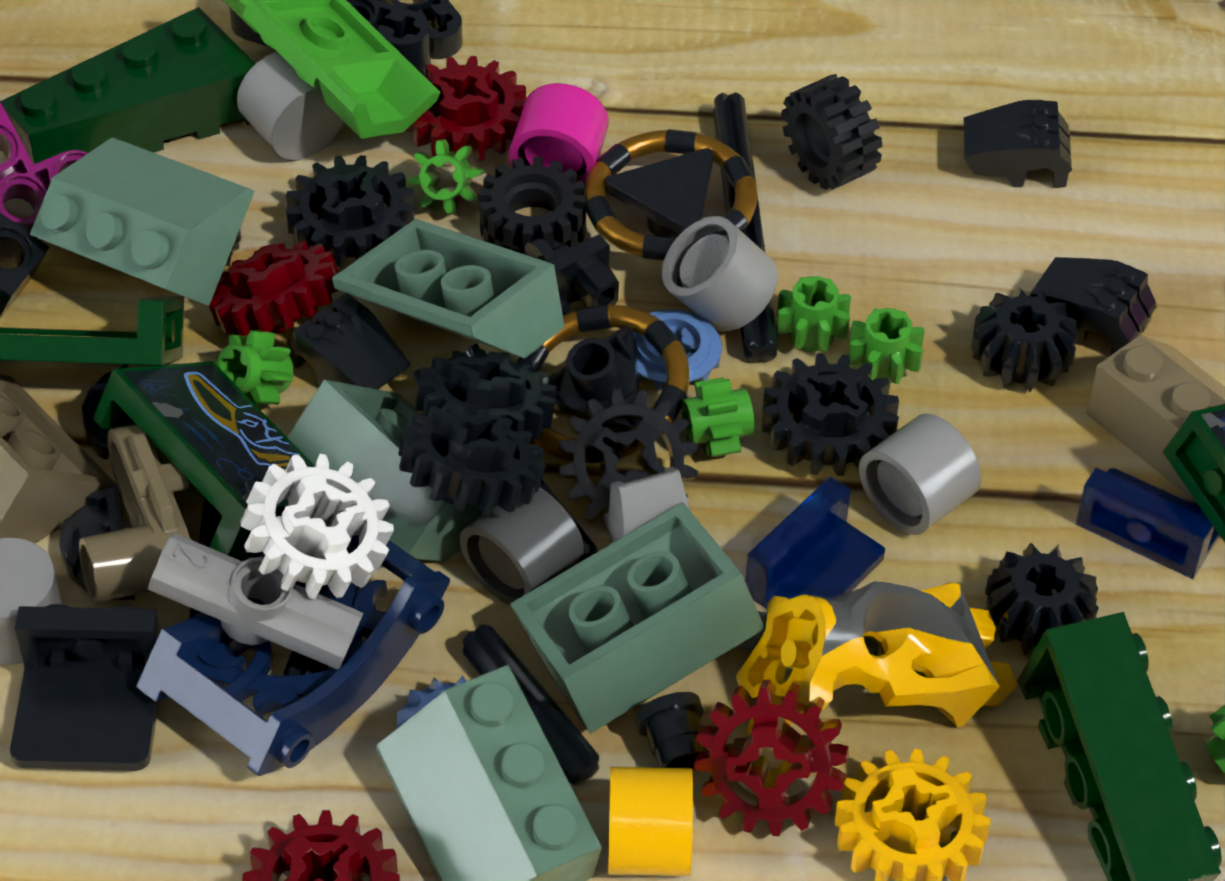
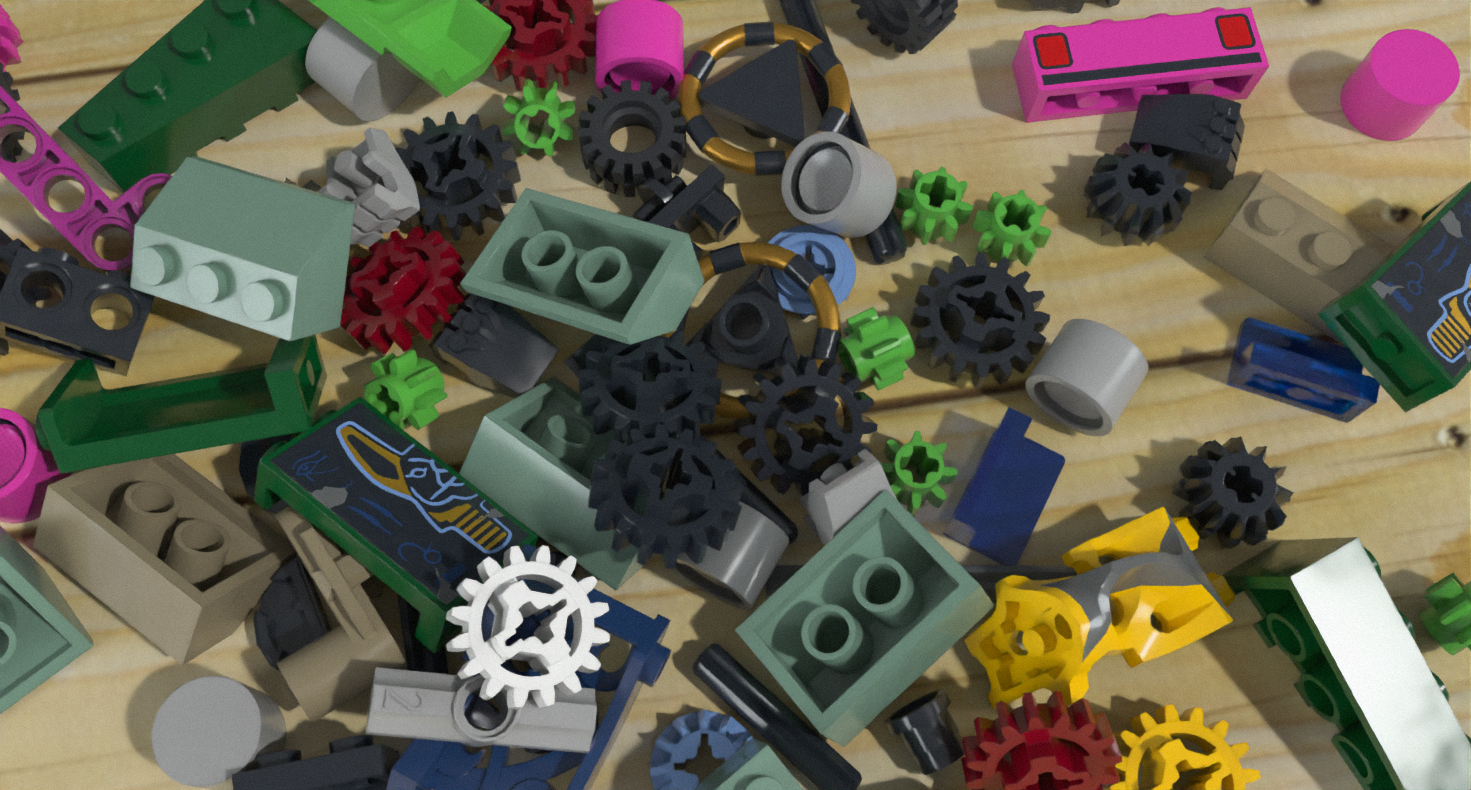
camera: 15 degrees left, 20 degrees up
(279, 199) = (376, 183): none -> light grey hand
(731, 520) = (929, 465): none -> bright green gear
(1025, 226) = (1114, 63): none -> dark pink brick

